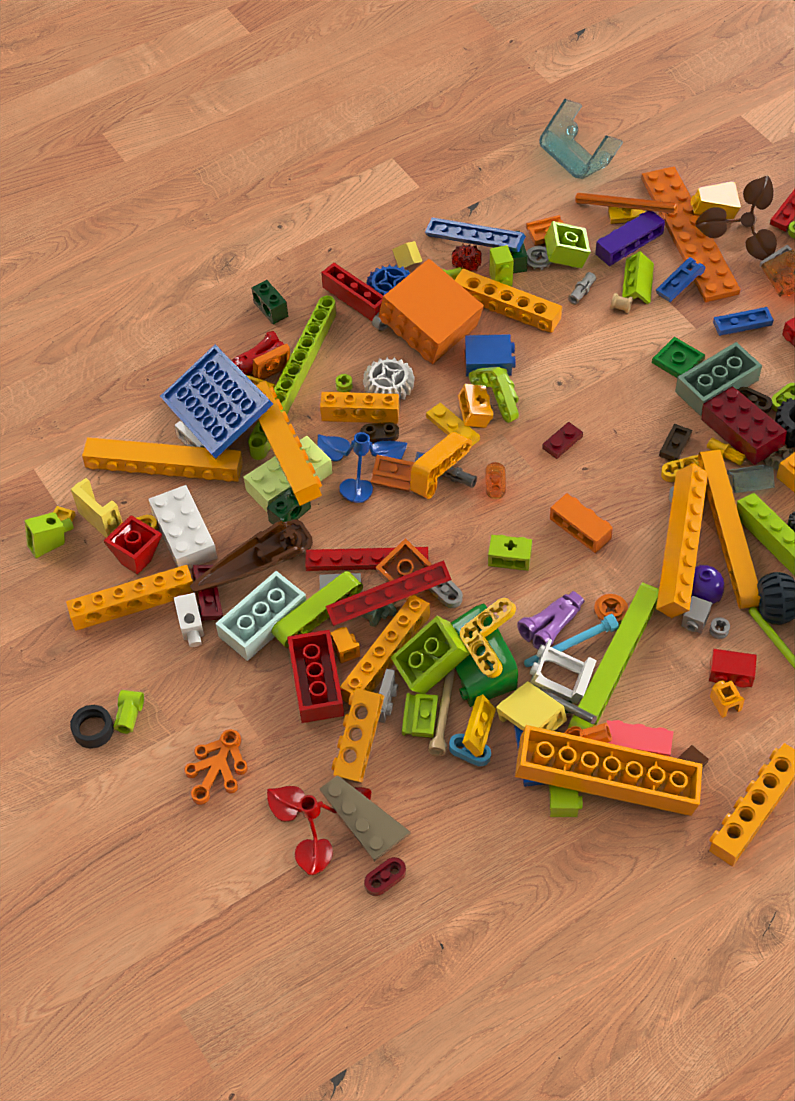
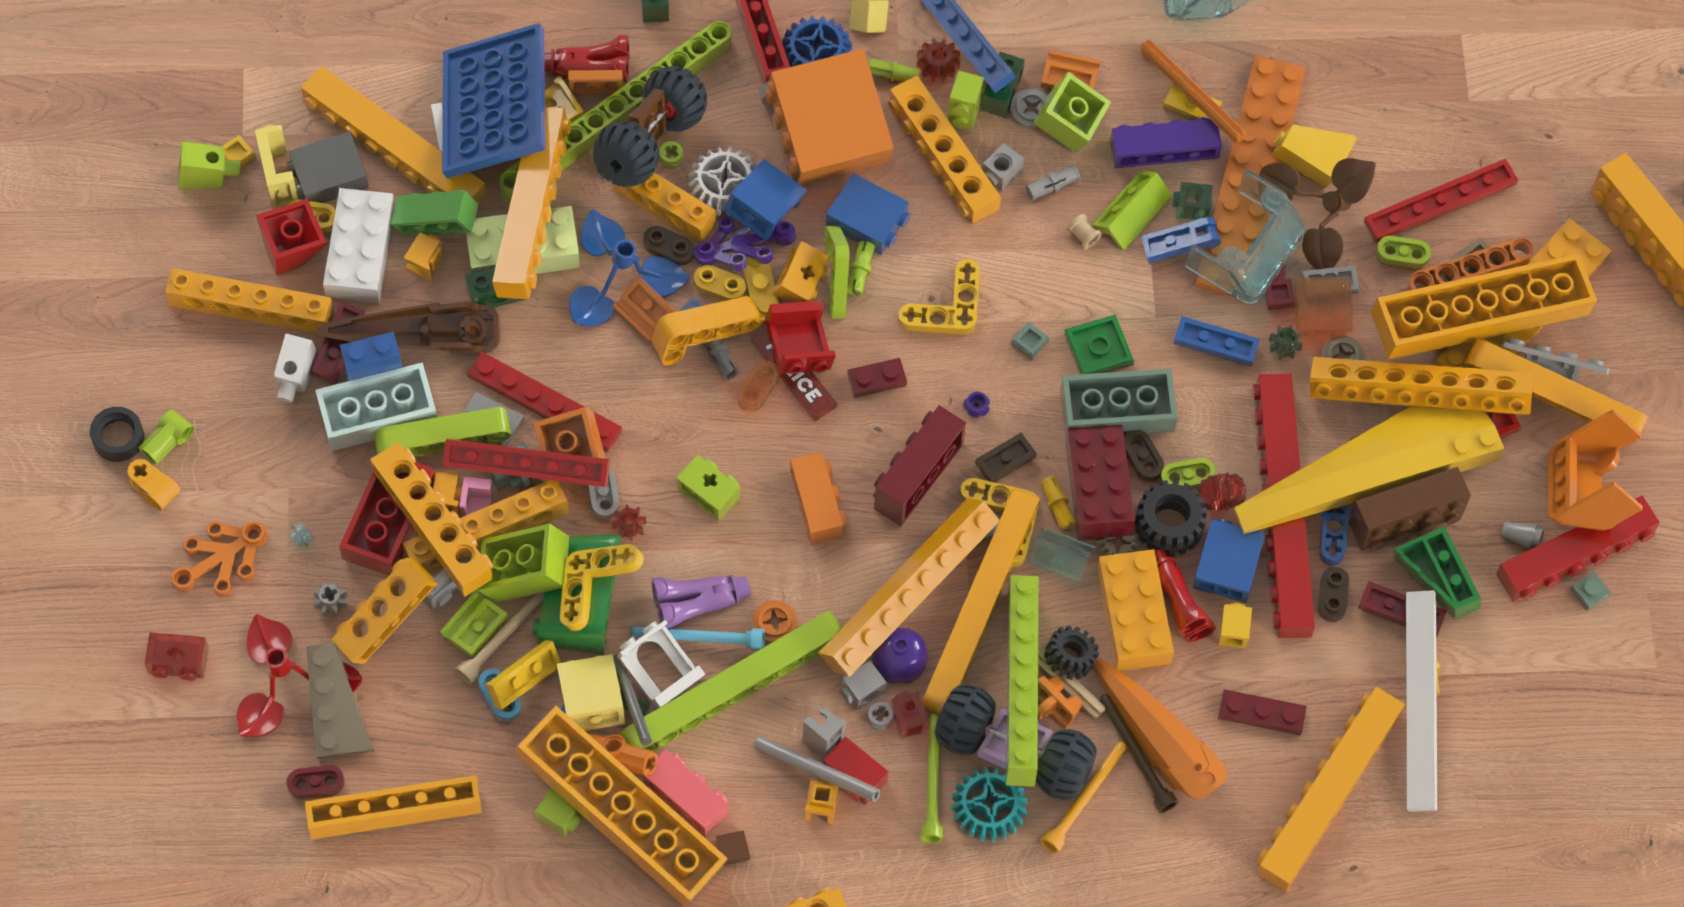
camera: 25 degrees right, 10 degrees up
(131, 493) = (326, 167): none -> dark grey brick
(139, 746) = (155, 486): none -> light orange piece
(218, 847) = (164, 648): none -> clear red brick
(221, 483) = (434, 213): none -> bright green brick
(229, 514) = (424, 255): none -> light orange window
(240, 583) = (370, 356): none -> blue brick
(263, 722) = (301, 534): none -> clear light blue plate
(312, 751) = (326, 591): none -> light grey gear
(325, 378) = (629, 149): none -> black plate
(358, 667) = (465, 576): none -> light orange brick
(364, 635) = (475, 495): none -> bright pink panel
(408, 422) = (714, 251): none -> dark purple plant
(423, 375) = (764, 199): none -> blue panel
(426, 437) = (718, 284): none -> yellow plate
(452, 861) = (393, 807): none -> light orange brick
(474, 597) = (632, 515): none -> clear red gear
(500, 440) = (798, 337): none -> red panel
(512, 462) = (803, 385): none -> clear red tile
(548, 289) = (1006, 158): none -> light grey brick
(578, 383) = (953, 313): none -> yellow beam
(630, 470) = (919, 464): none -> dark red brick
(634, 423) = (977, 398): none -> dark purple plate
(636, 375) = (1030, 341): none -> sand green tile
(670, 257) = (1199, 192): none -> clear green brick
(698, 656) = (826, 736): none -> light grey hinge
(711, 678) = (817, 769): none -> light grey piece
(732, 272) = (1252, 272): none -> clear light blue windscreen
(739, 615) = (909, 714): none -> clear red brick
(754, 279) = (1280, 292): none -> dark red plate
(782, 301) = (1289, 335): none -> gear

